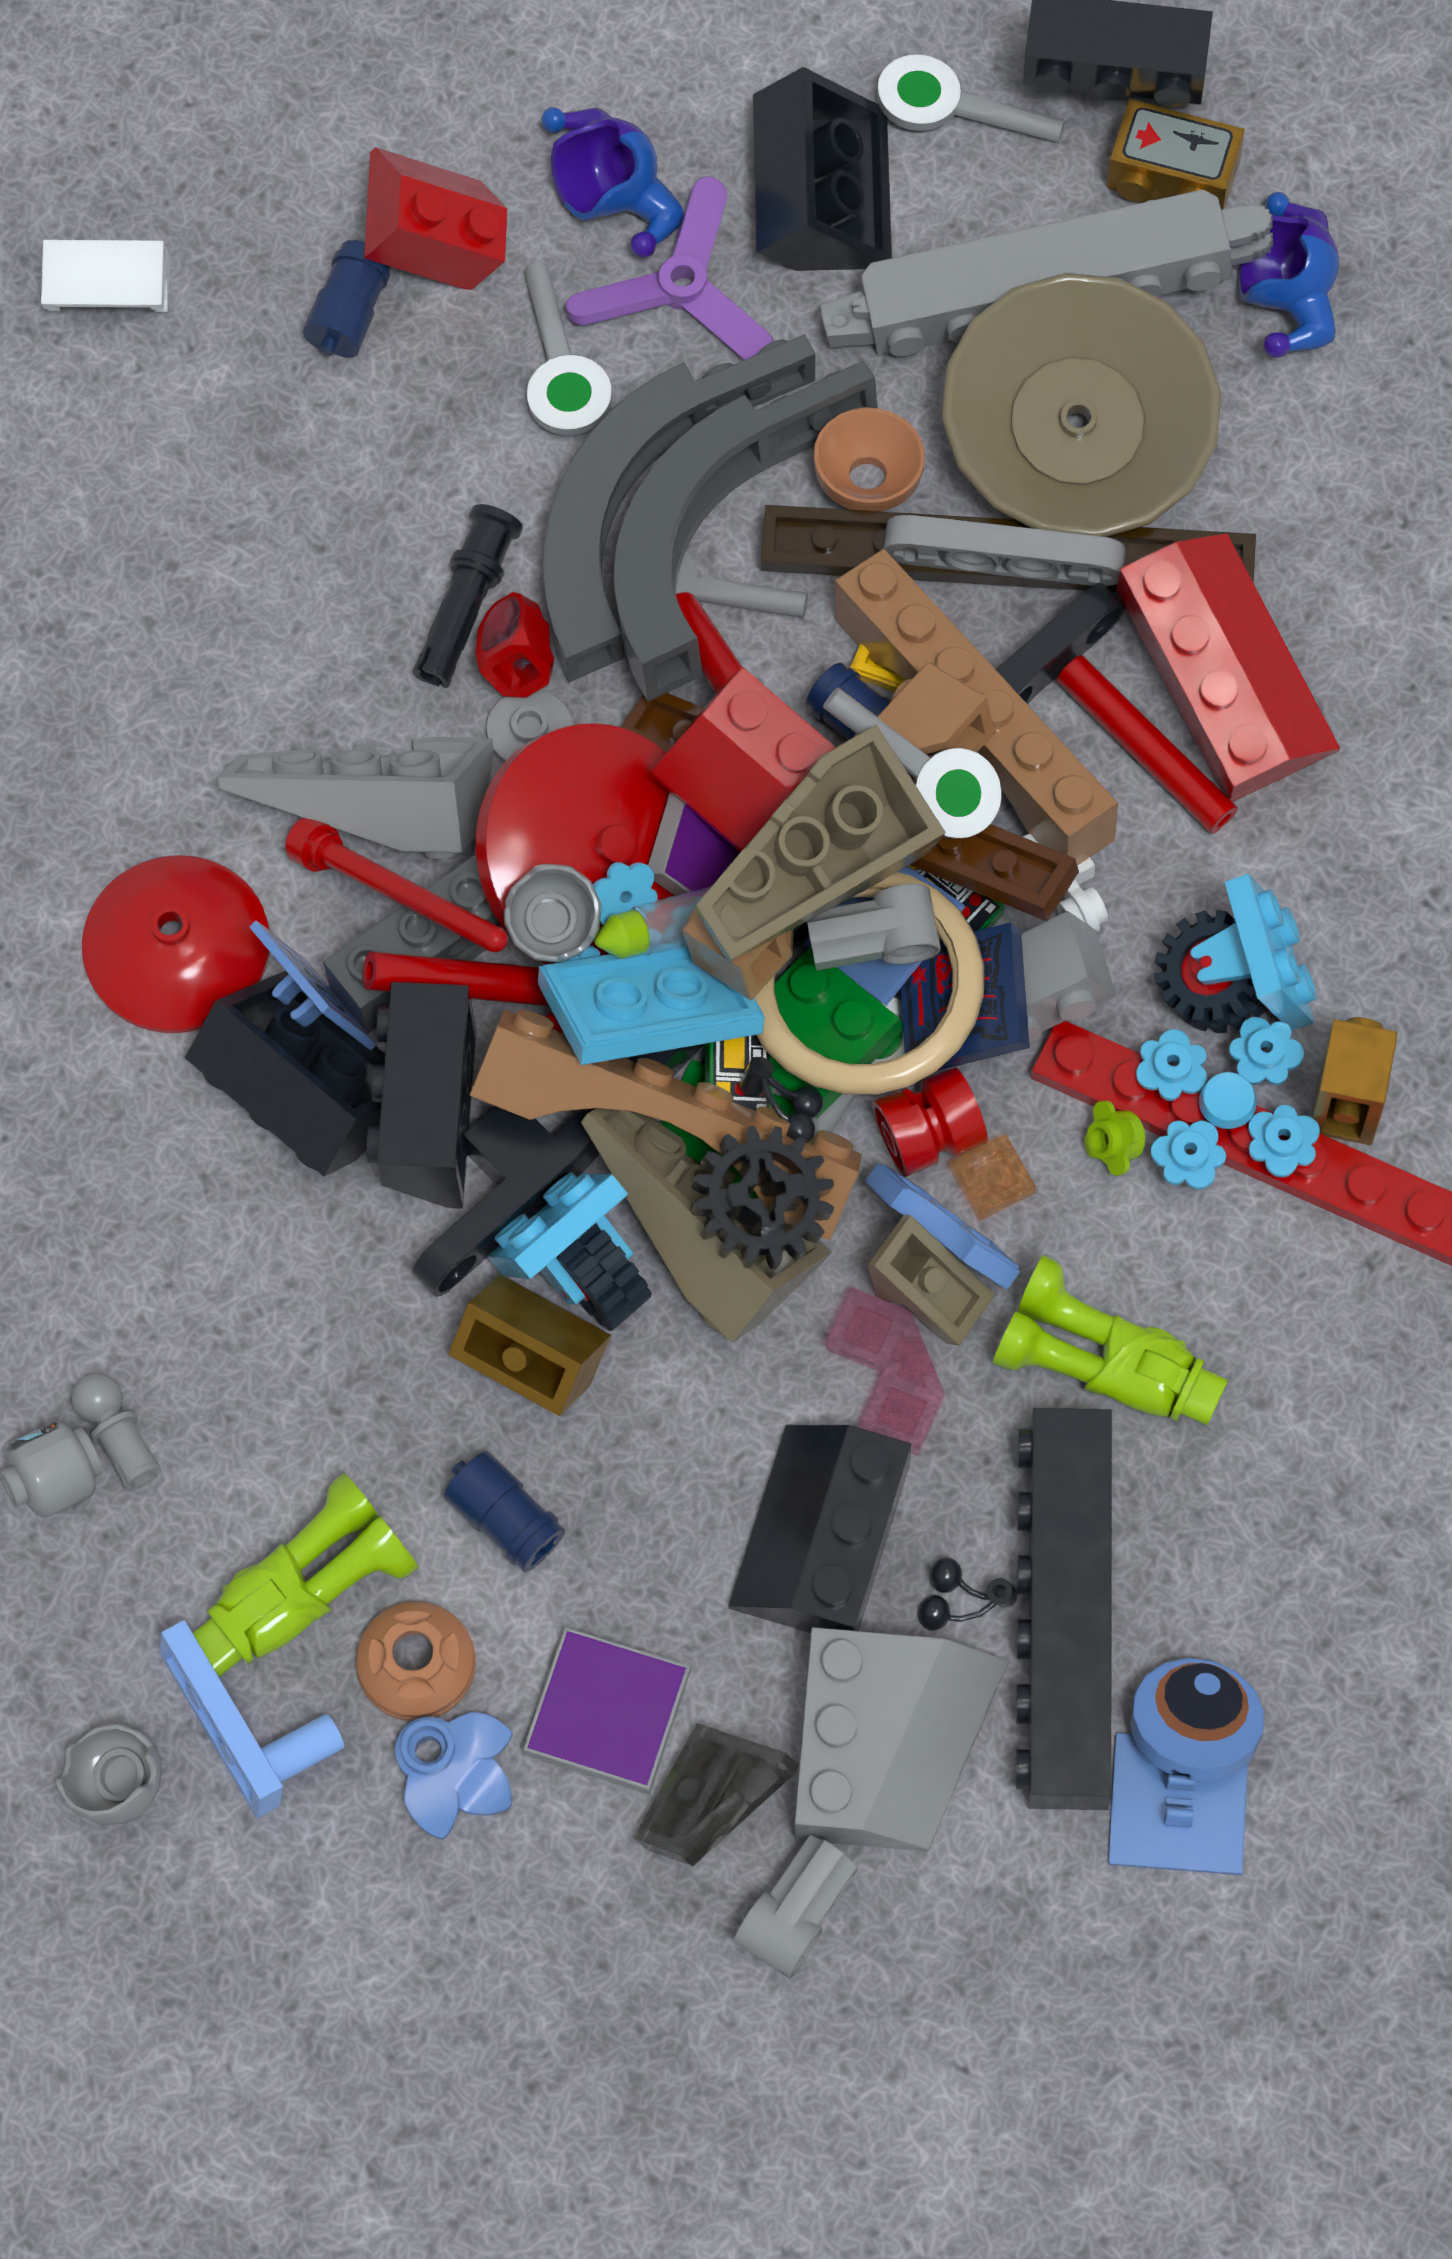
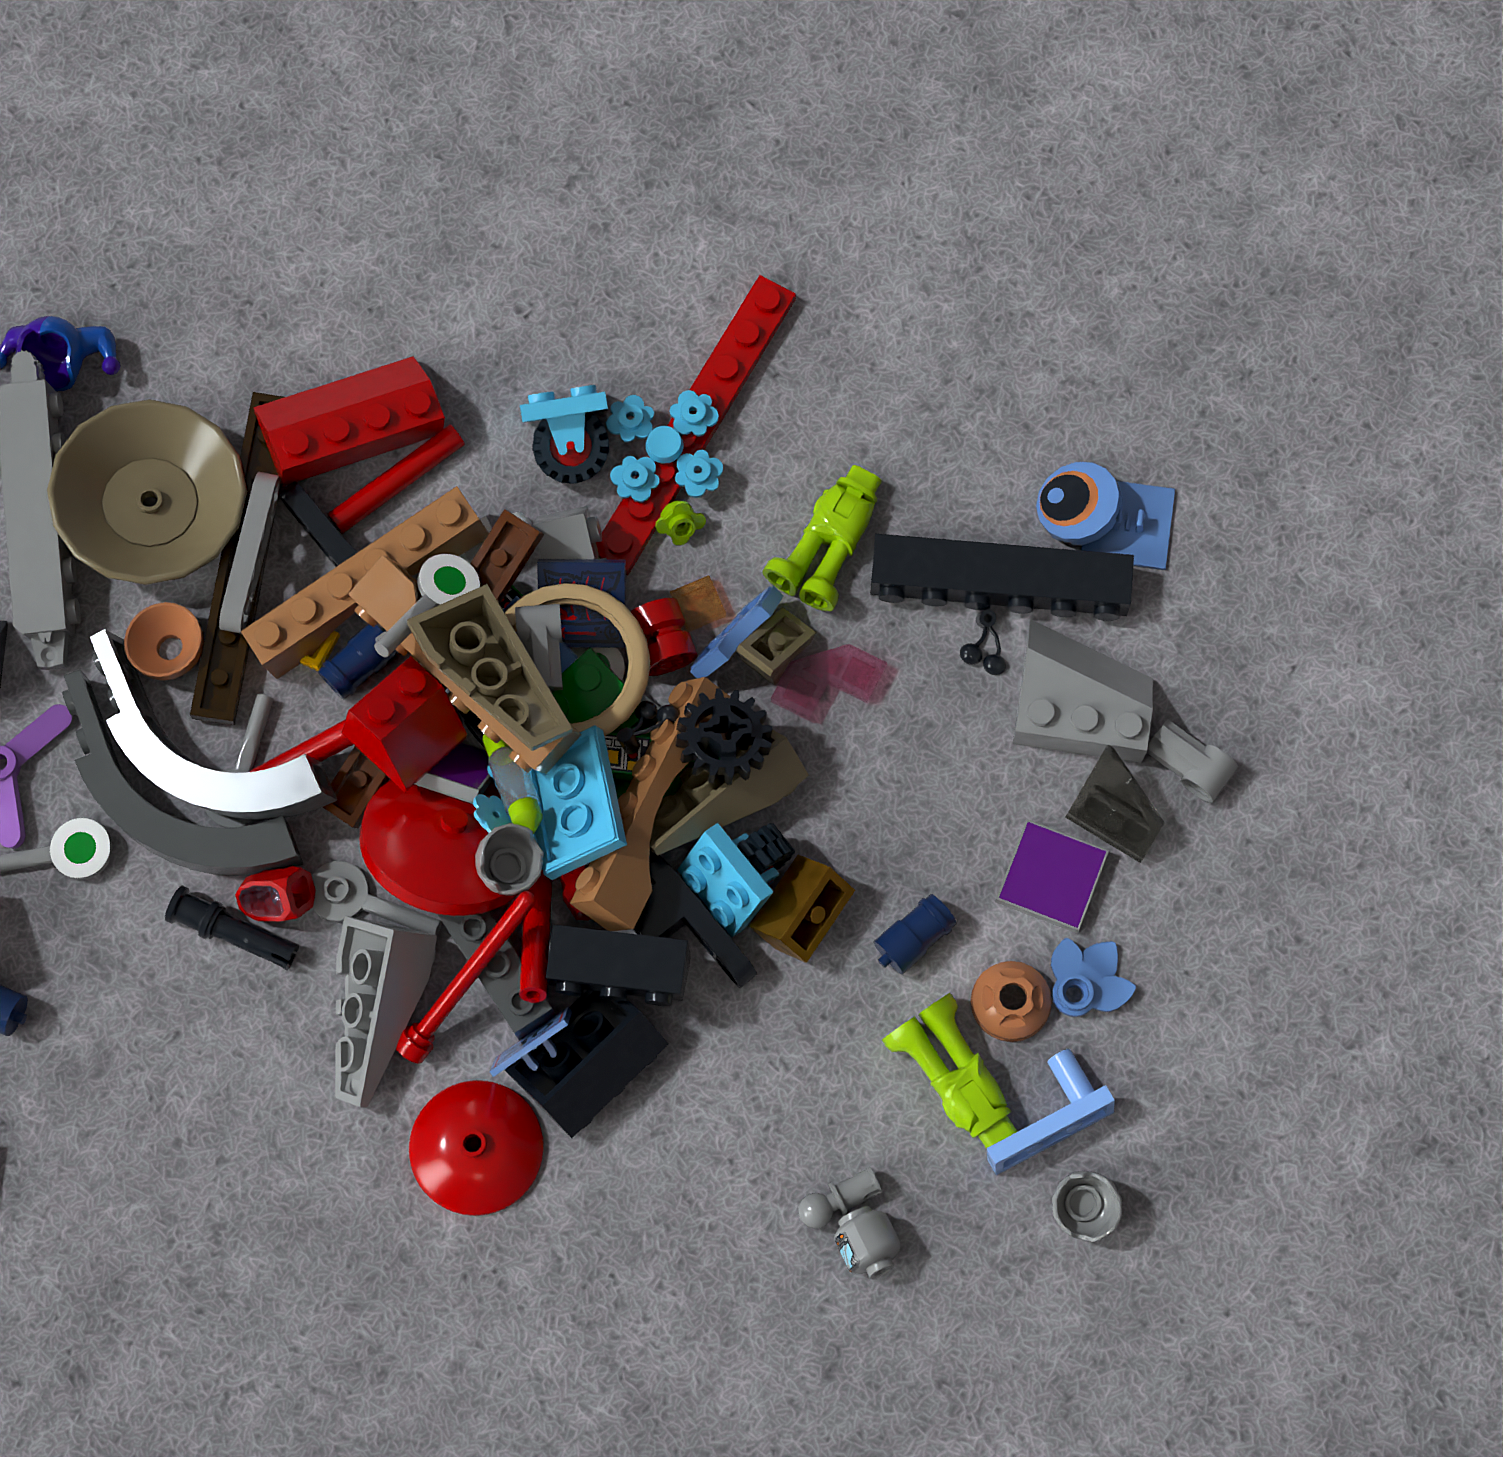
camera: 85 degrees left, 5 degrees up
(822, 1527) = (939, 727): black slope -> none
(1354, 1079) = (659, 362): pearl gold brick -> none

